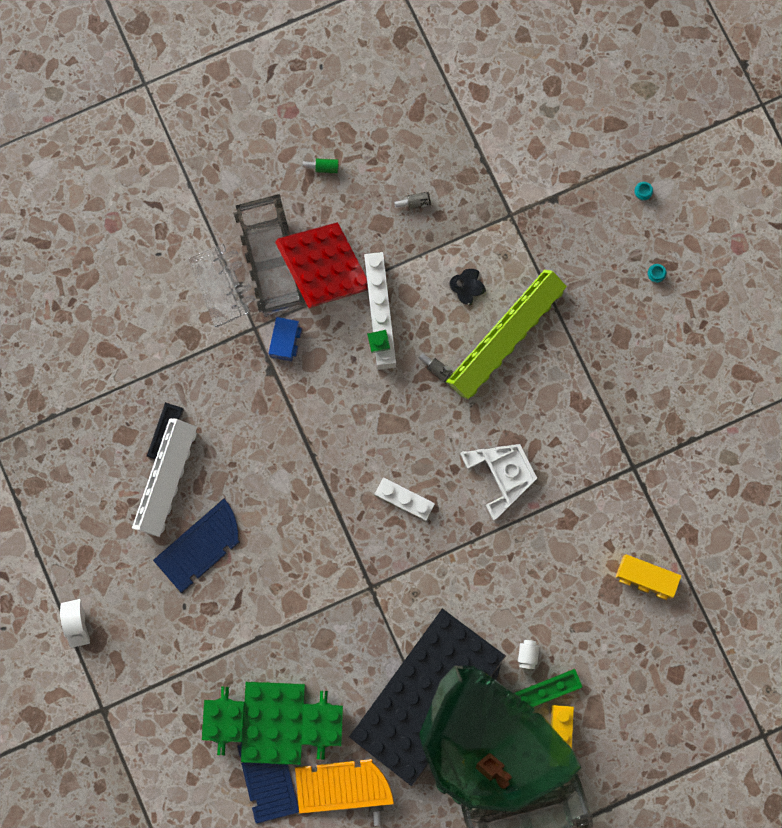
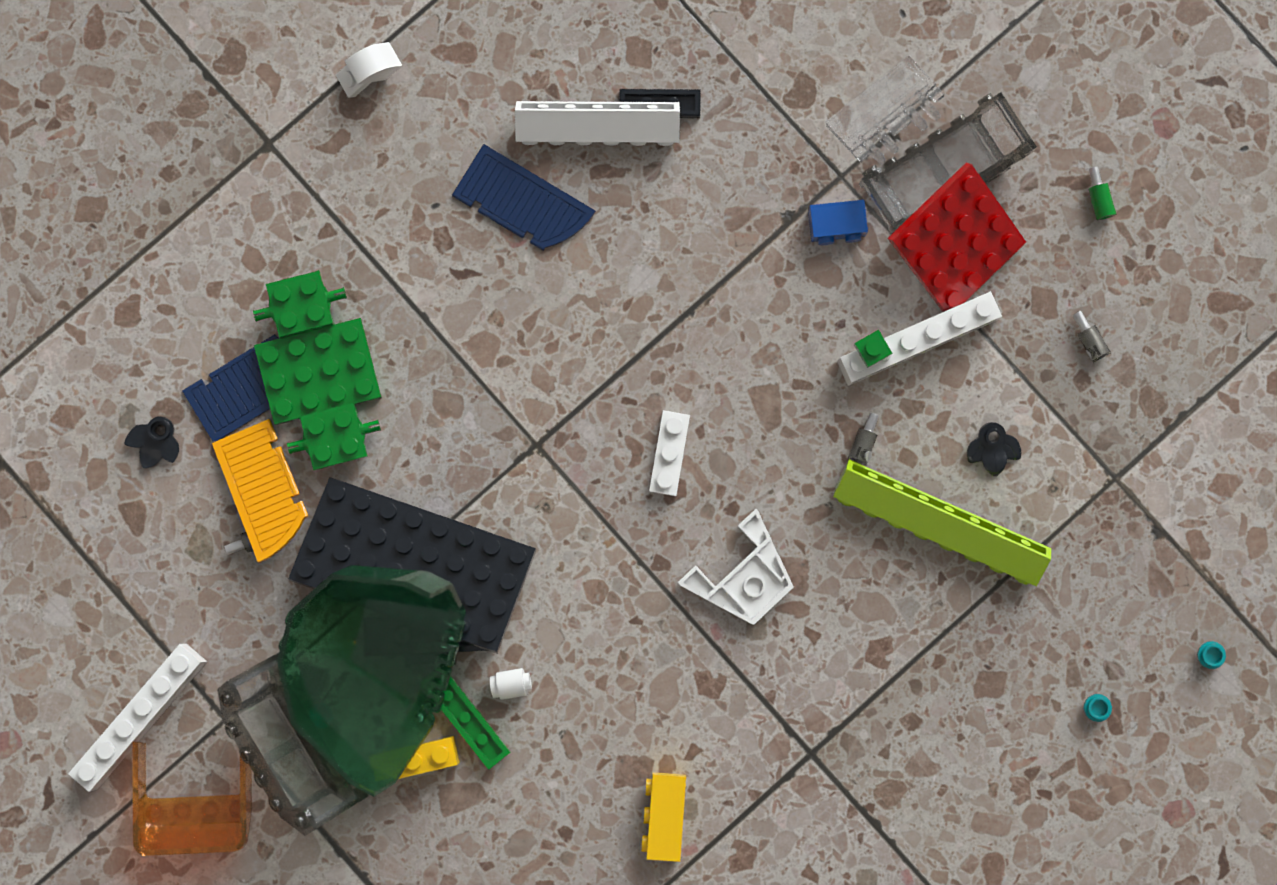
camera: 65 degrees right, 5 degrees up
(493, 768) = (342, 681): copper plate -> none

